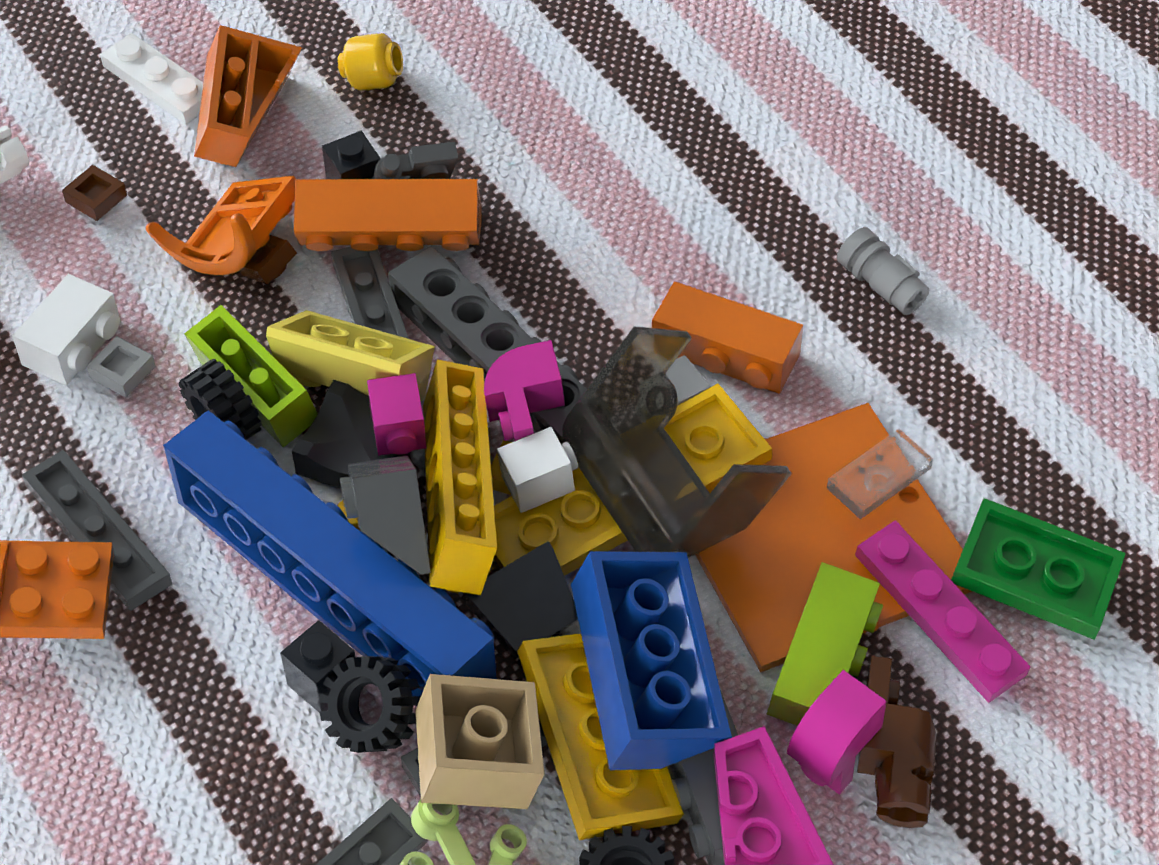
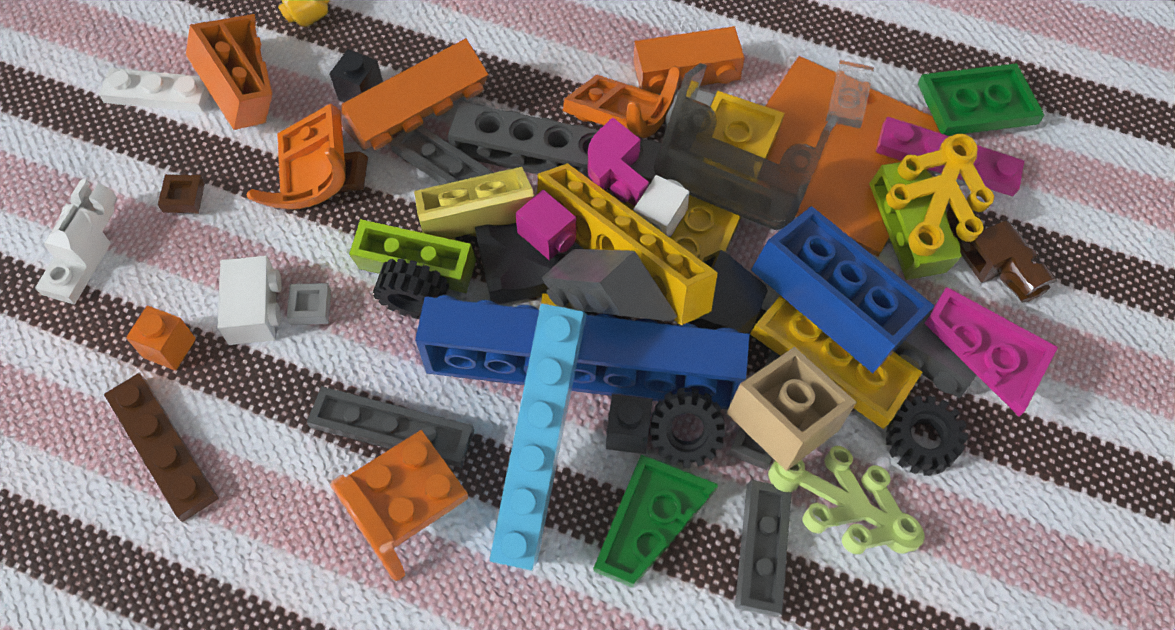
camera: 35 degrees left, 10 degrees up
(200, 607) = (538, 437): none -> medium azure brick
(262, 772) = (649, 518): none -> green wing
(422, 162) = (414, 50): dark grey plate -> none
(585, 331) = (632, 107): none -> orange piece
(836, 731) = (980, 262): dark pink brick -> none
(865, 626) = (958, 156): none -> yellow plant

